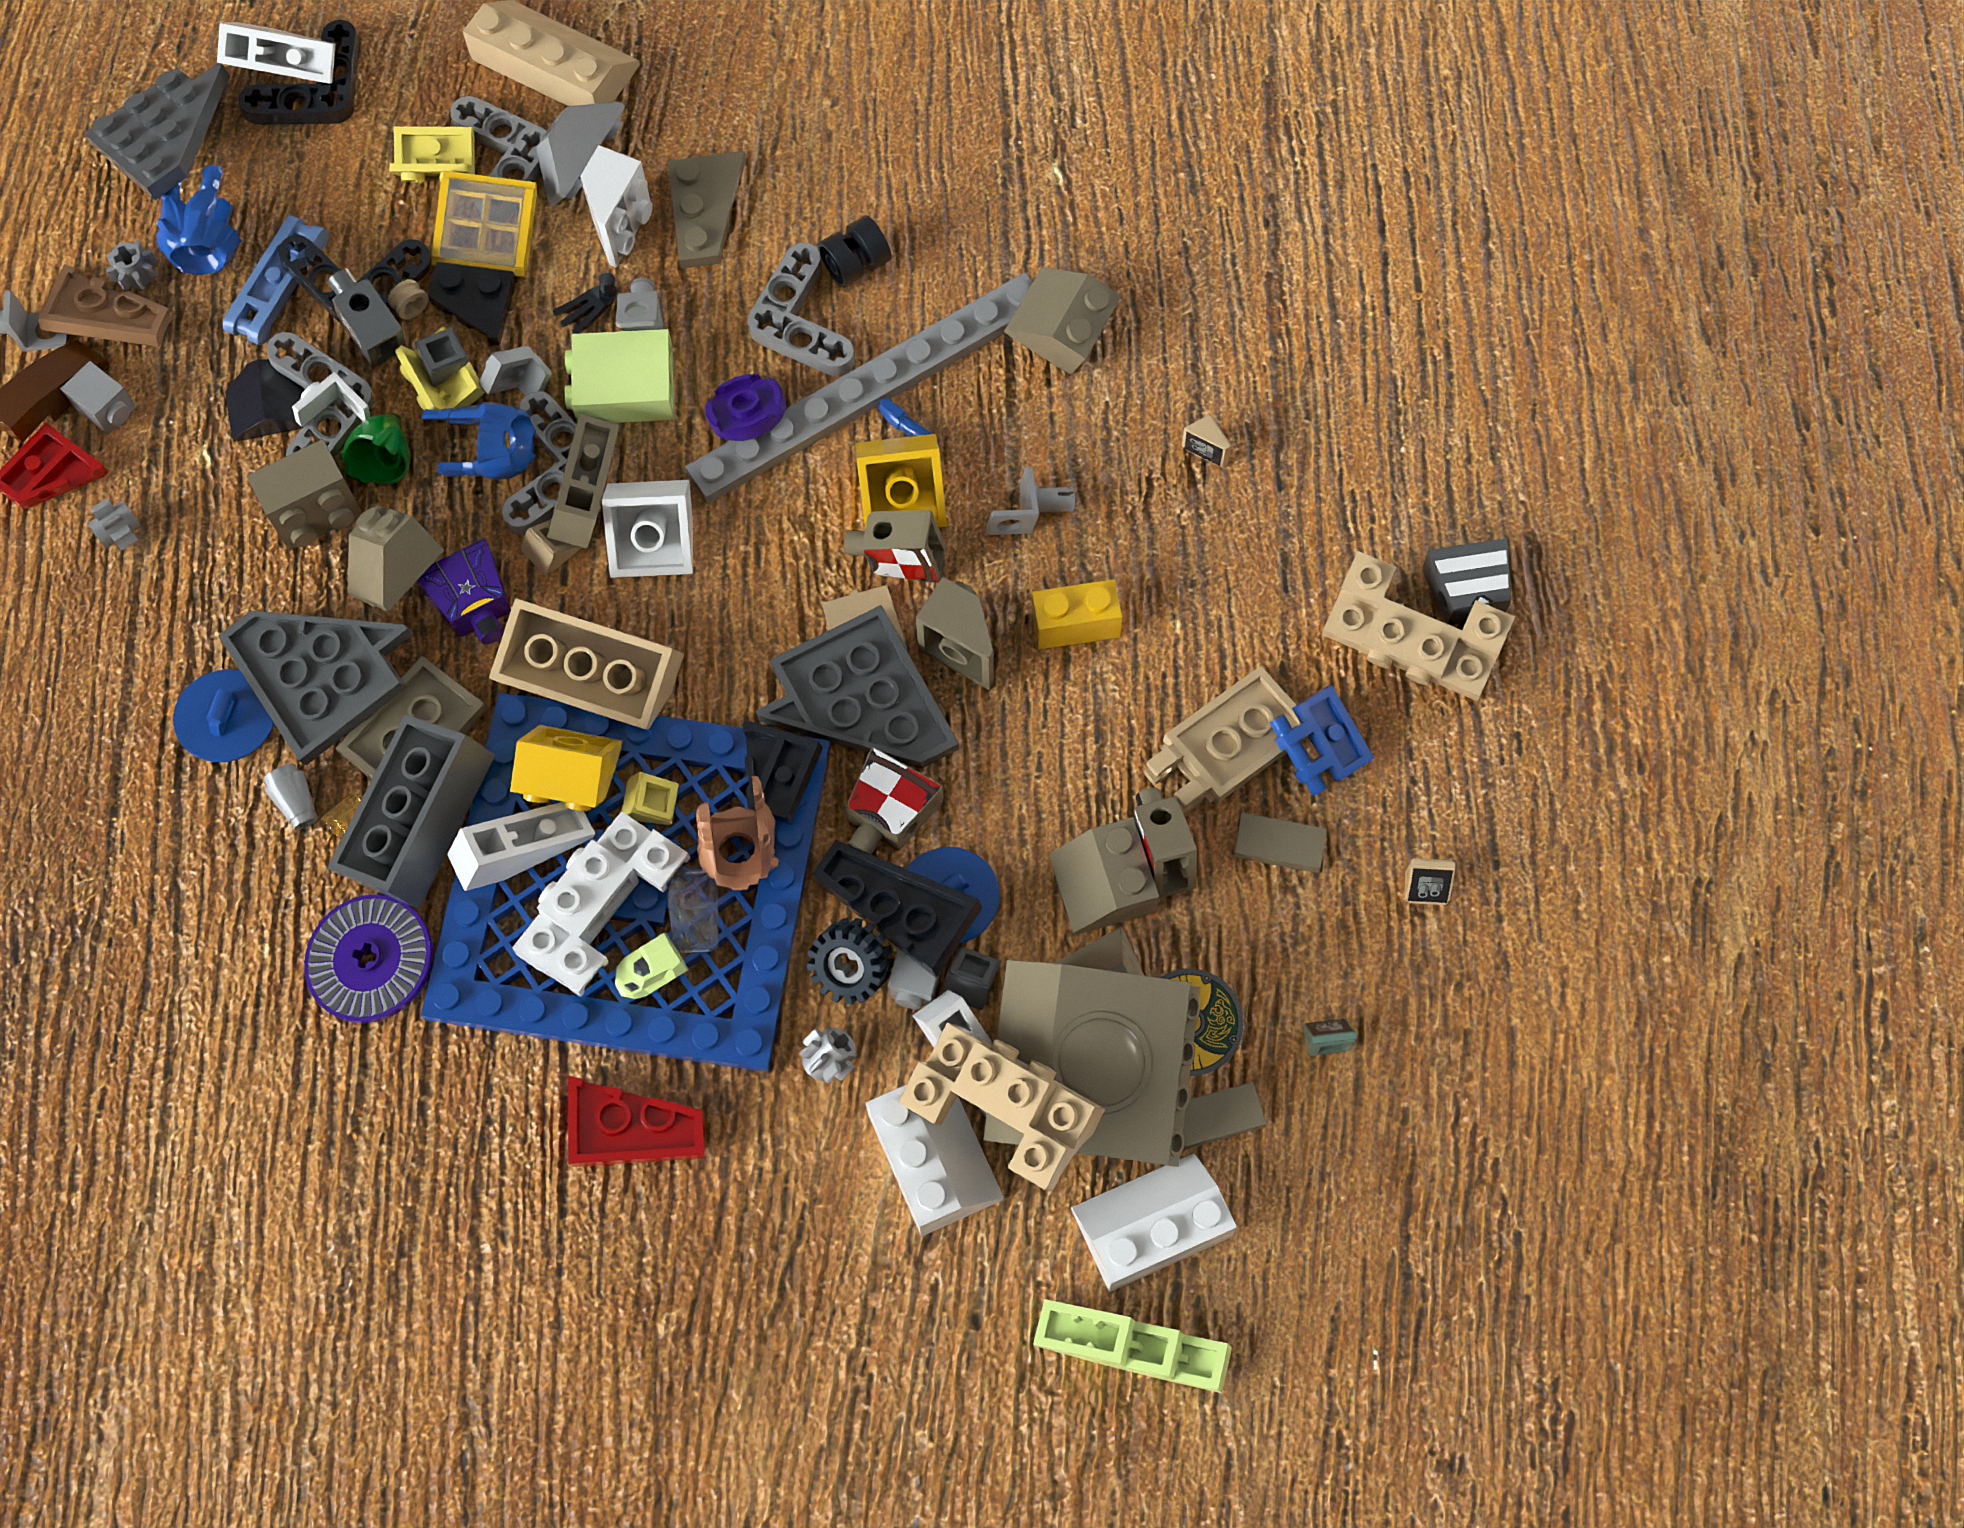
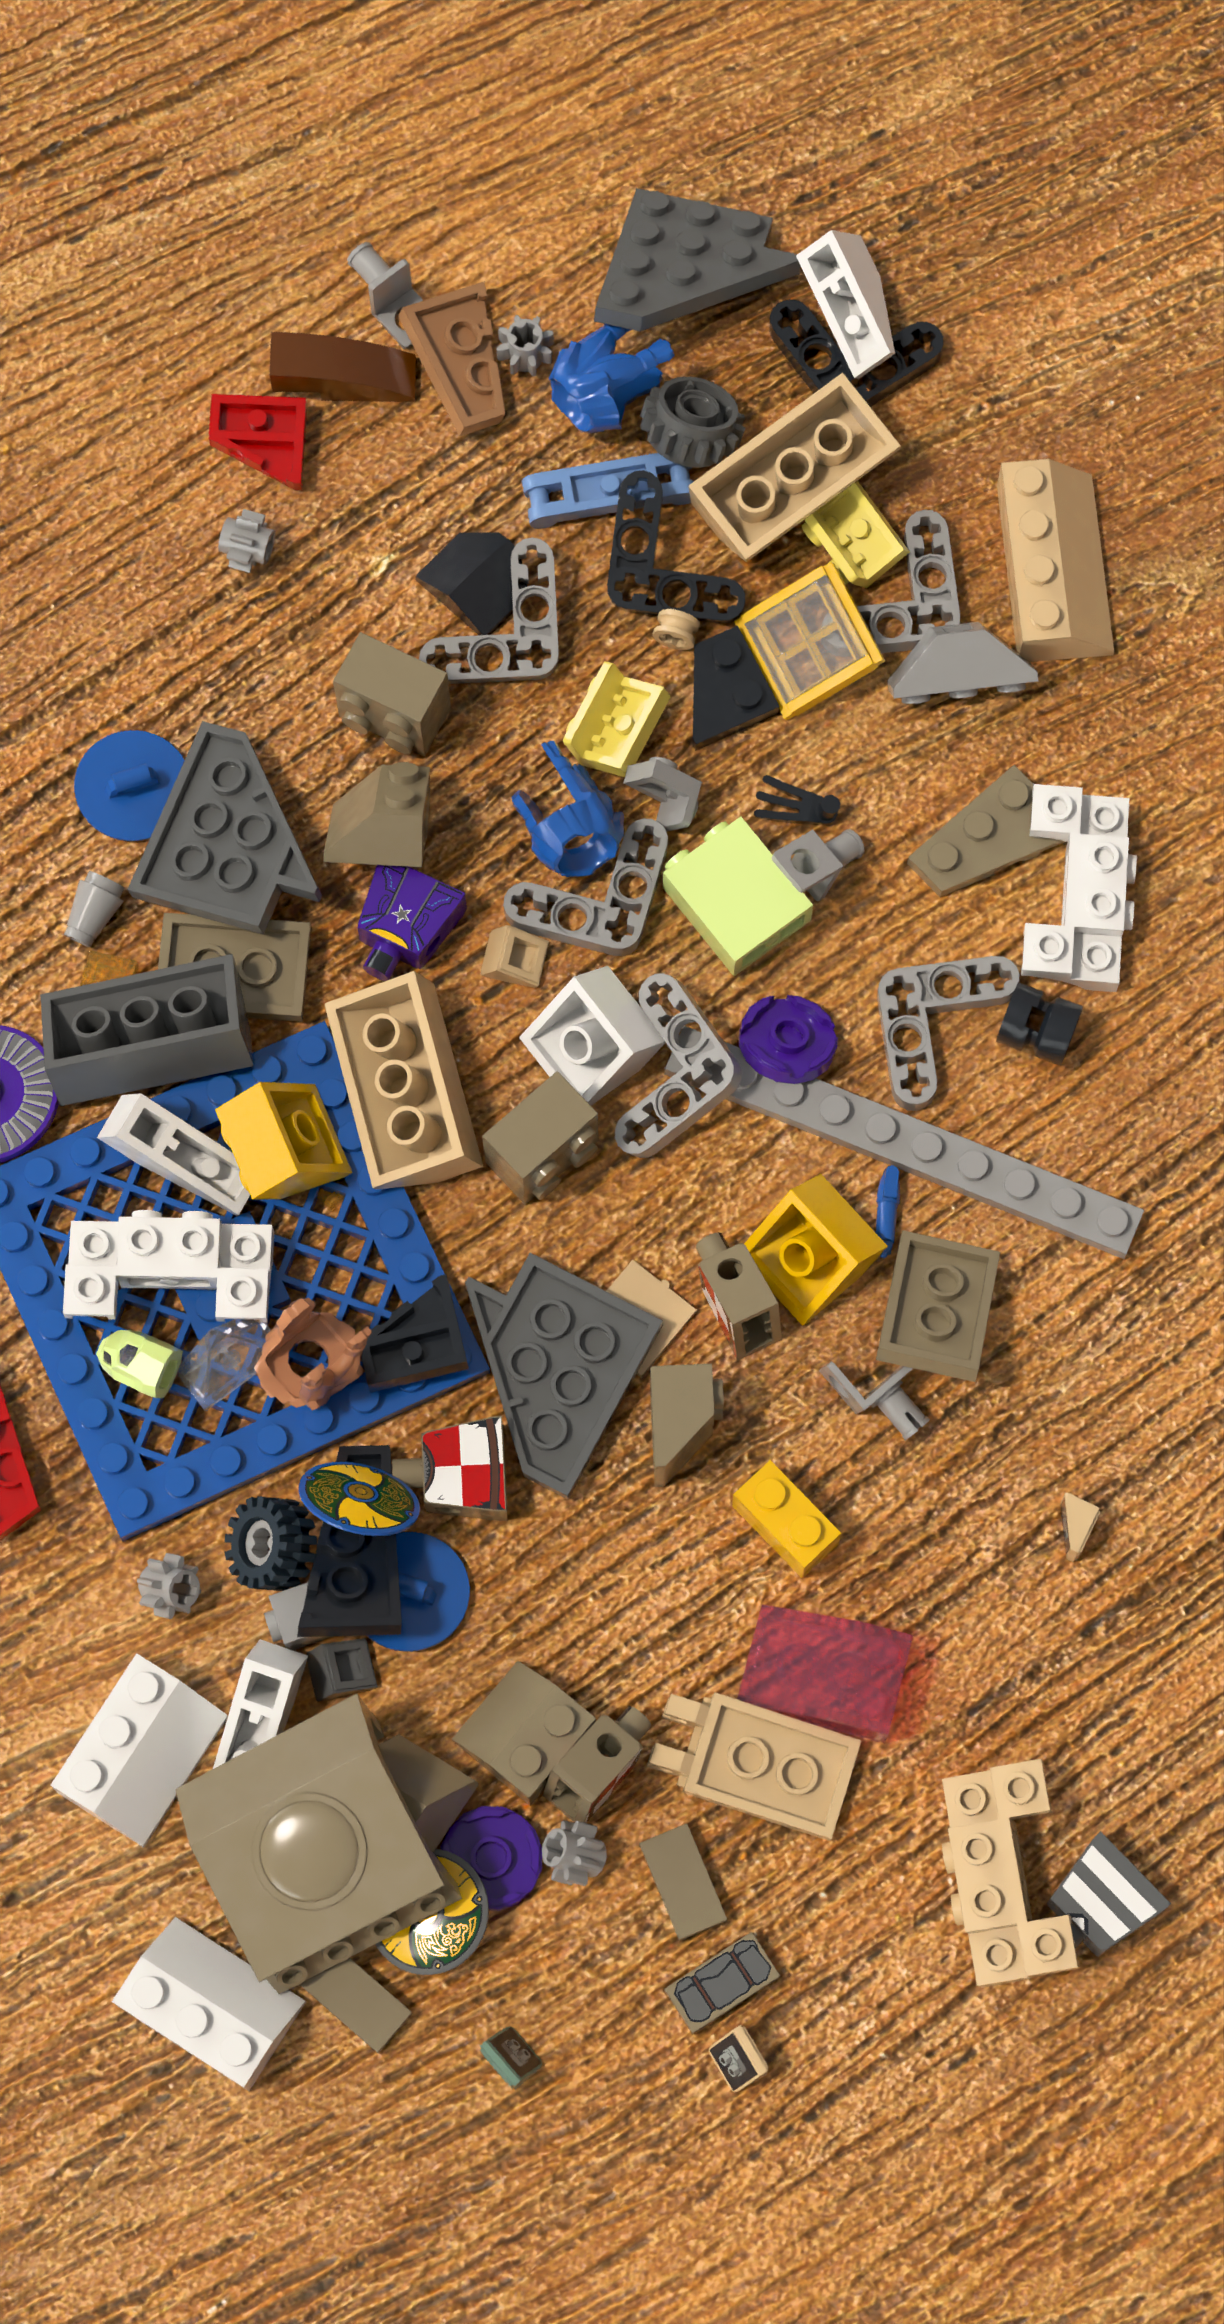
camera: 55 degrees right, 5 degrees up
(98, 397) = (366, 425): light grey brick -> none
(275, 195) = (692, 422): none -> dark grey gear
(320, 395) = (503, 628): white bracket -> none
(360, 154) = (792, 468): none -> tan slope
(373, 329) = (610, 630): dark grey torso -> none
(377, 451) = (494, 722): green hat -> none
(441, 355) = (630, 709): dark grey slope -> none
(583, 481) = (592, 941): dark tan slope -> none
(616, 200) = (916, 752): white slope -> none
(650, 799) = (309, 1241): light yellow slope -> none
(698, 597) = (542, 1139): none -> dark tan brick
(716, 469) = (695, 1063): none -> light grey beam
(786, 166) = (1094, 902): none -> white bracket
(866, 873) = (359, 1498): none -> shield
(1000, 427) = (938, 1306): none -> dark tan plate
(1019, 1094) = (219, 1783): tan bracket -> none
(1062, 316) = (1112, 1282): dark tan slope -> none
(1133, 1345) = (77, 2063): yellowish green slope -> none
(1177, 946) = (500, 1850): none -> dark purple tile
(1199, 654) = (826, 1671): none -> clear pink slope
(1214, 897) = (574, 1853): none -> light grey gear
(1331, 733) = (829, 1861): blue plate -> none
(1367, 862) = (722, 1983): none -> tile

